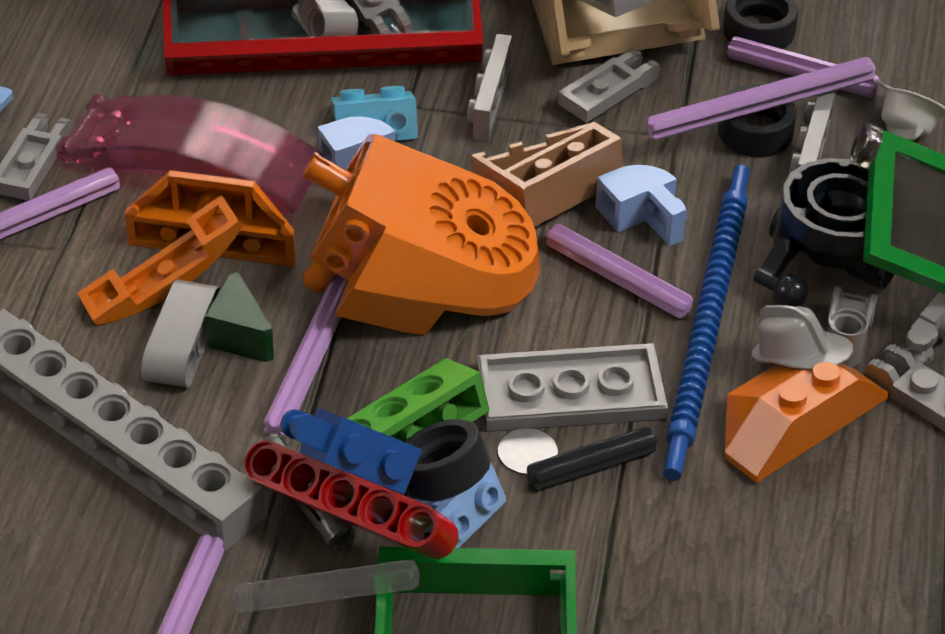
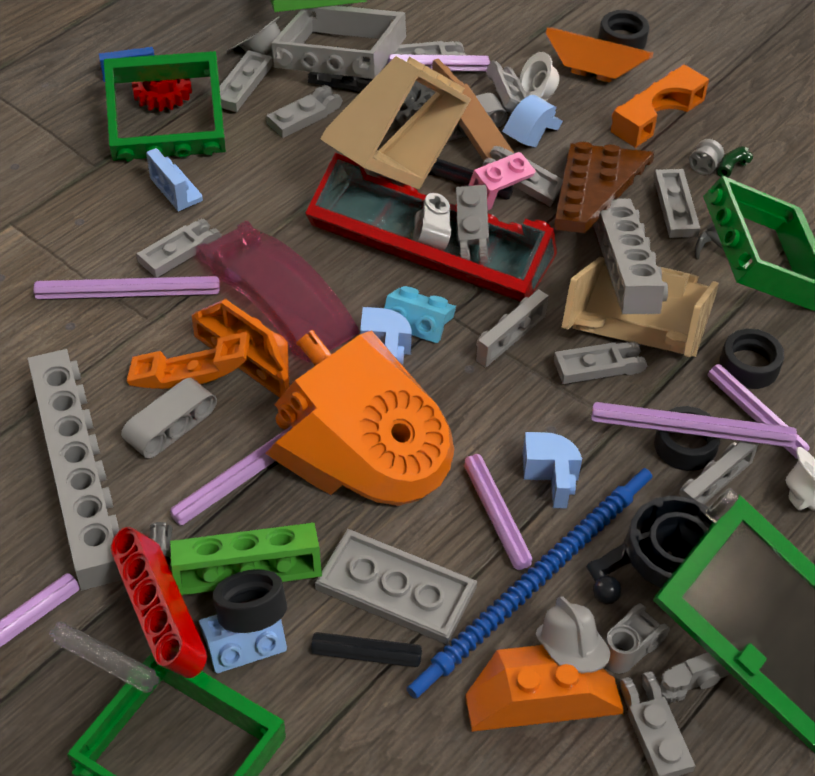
camera: 30 degrees right, 5 degrees up
(237, 322) = (208, 425): dark green slope -> none
(352, 447) = (177, 564): blue brick -> none
(525, 447) = (331, 617): flat silver sticker -> none
(556, 172) = (497, 415): medium nougat wedge -> none

